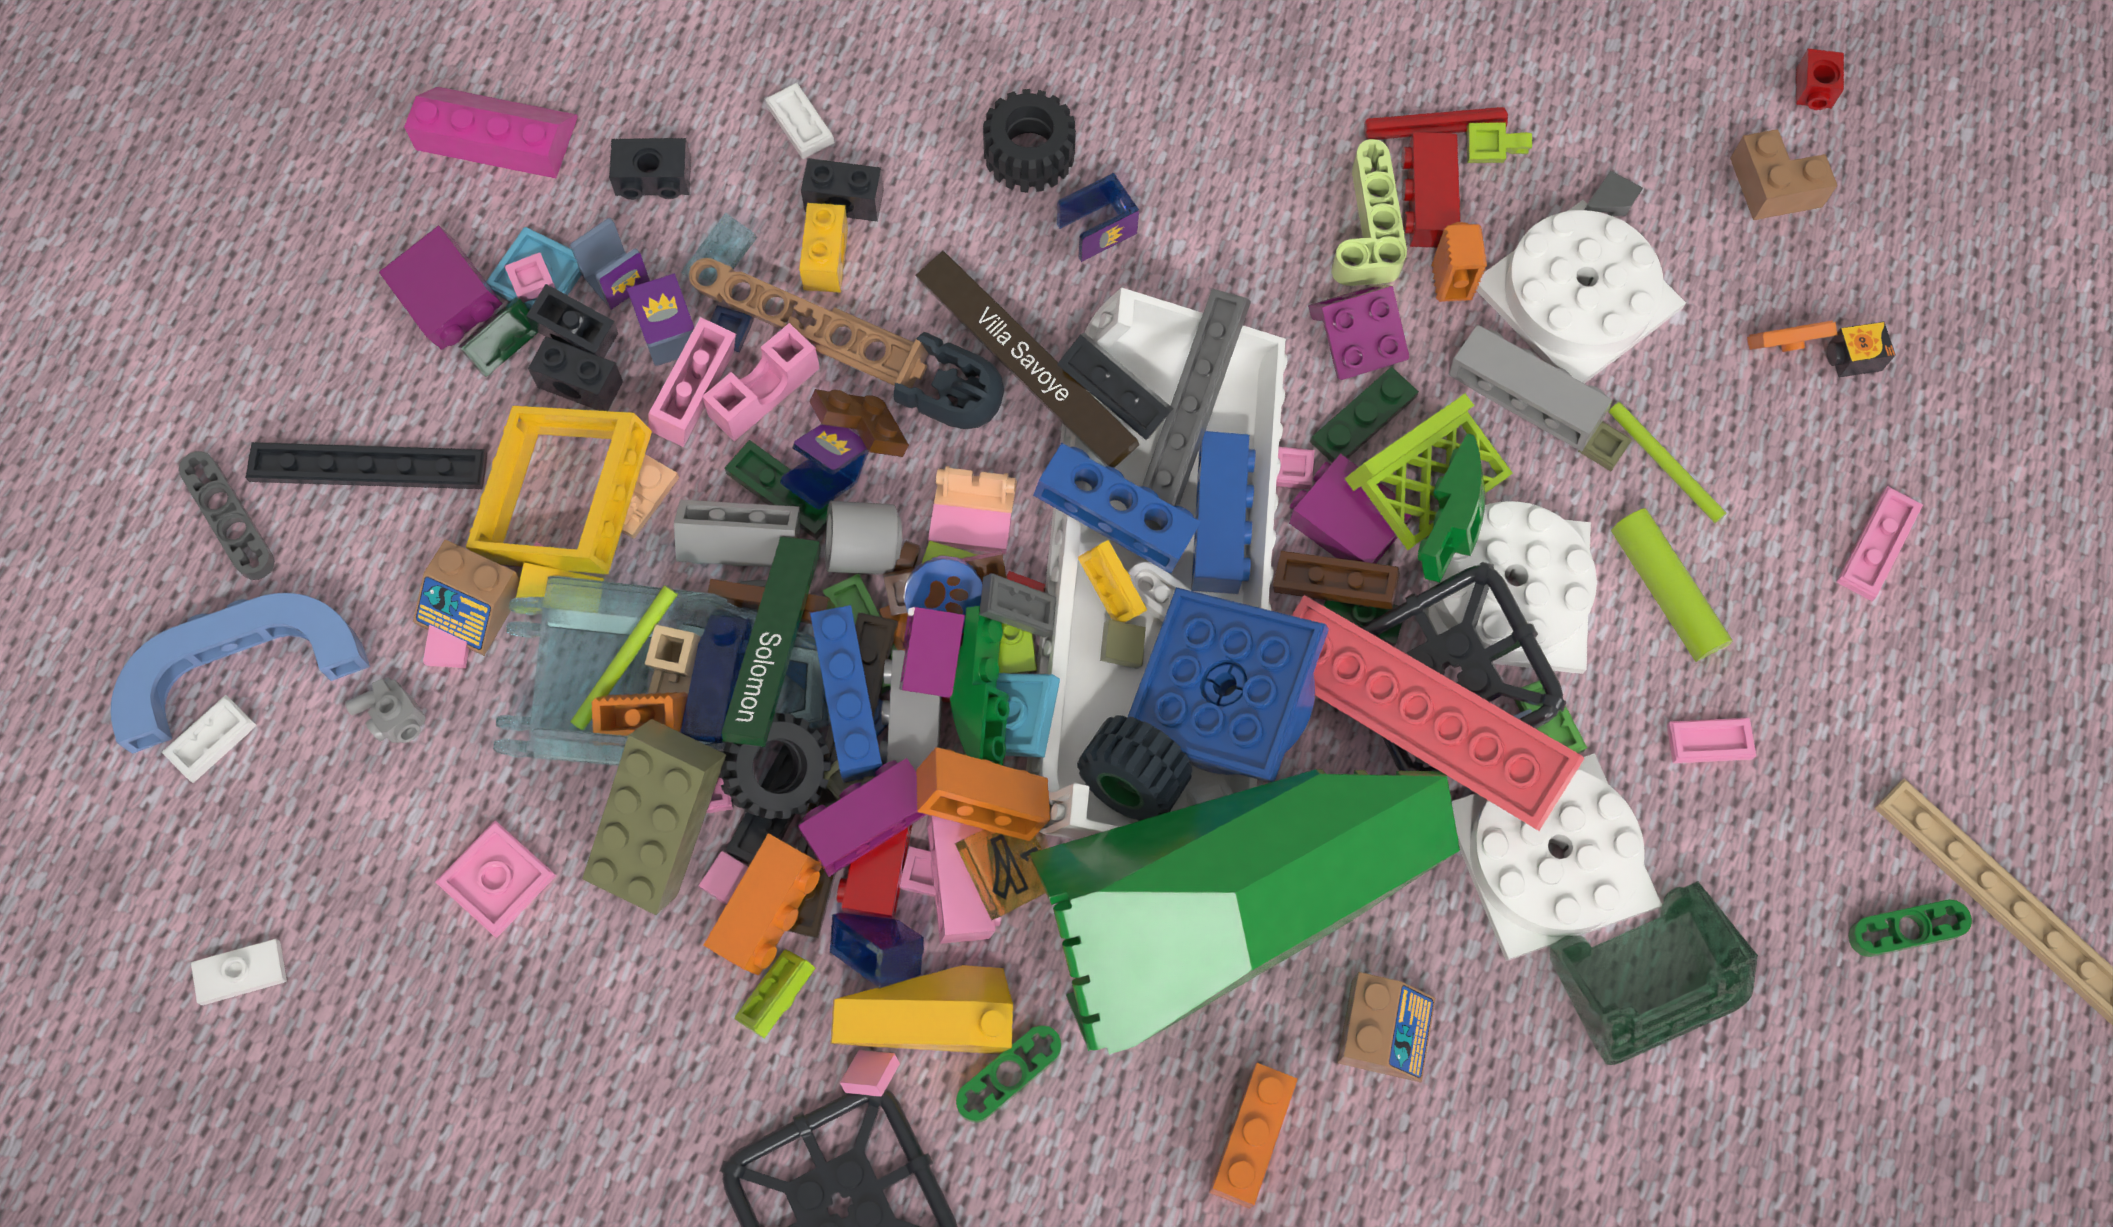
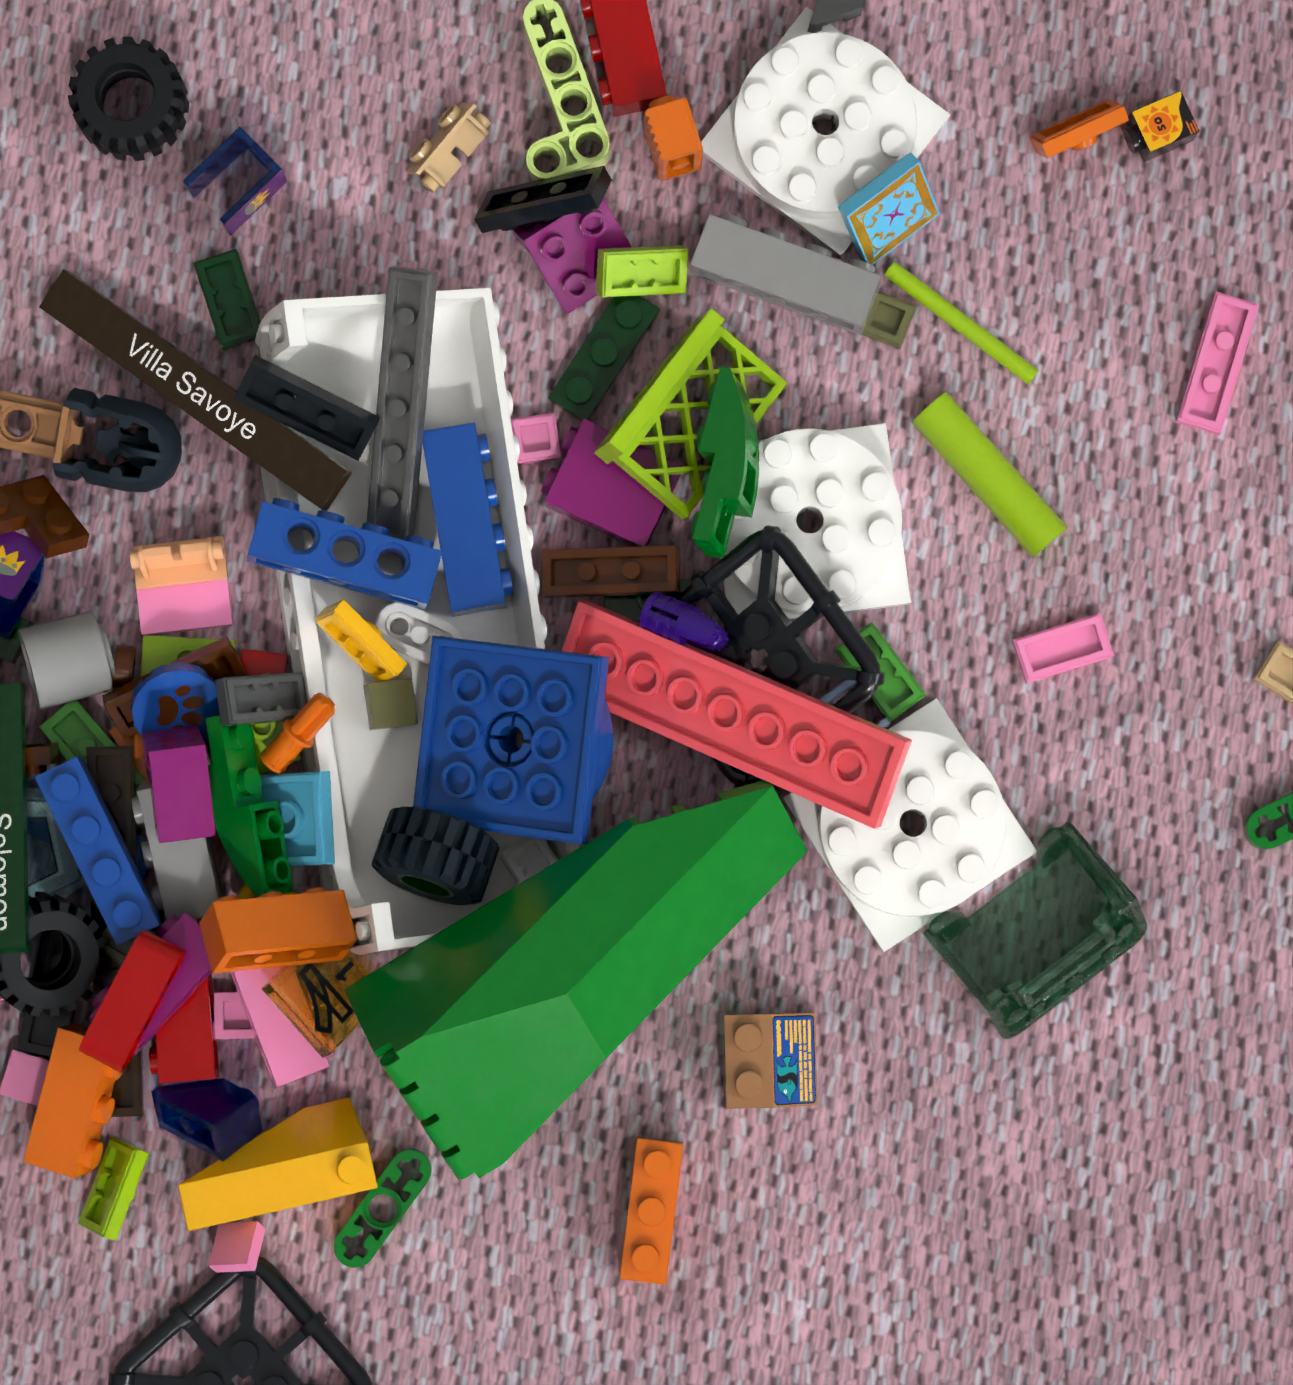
camera: 15 degrees left, 15 degrees up
(841, 817) = (132, 1000): none -> red beam
(1041, 641) = (298, 733): none -> orange axle
(1068, 303) = (228, 298): none -> dark green plate
(1285, 225) = (457, 130): none -> tan hinge
(1345, 282) = (543, 199): none -> black plate
(1393, 627) = (681, 623): none -> dark purple hinge
(1411, 356) = (642, 271): none -> lime plate
(1627, 354) = (889, 209): none -> medium azure tile

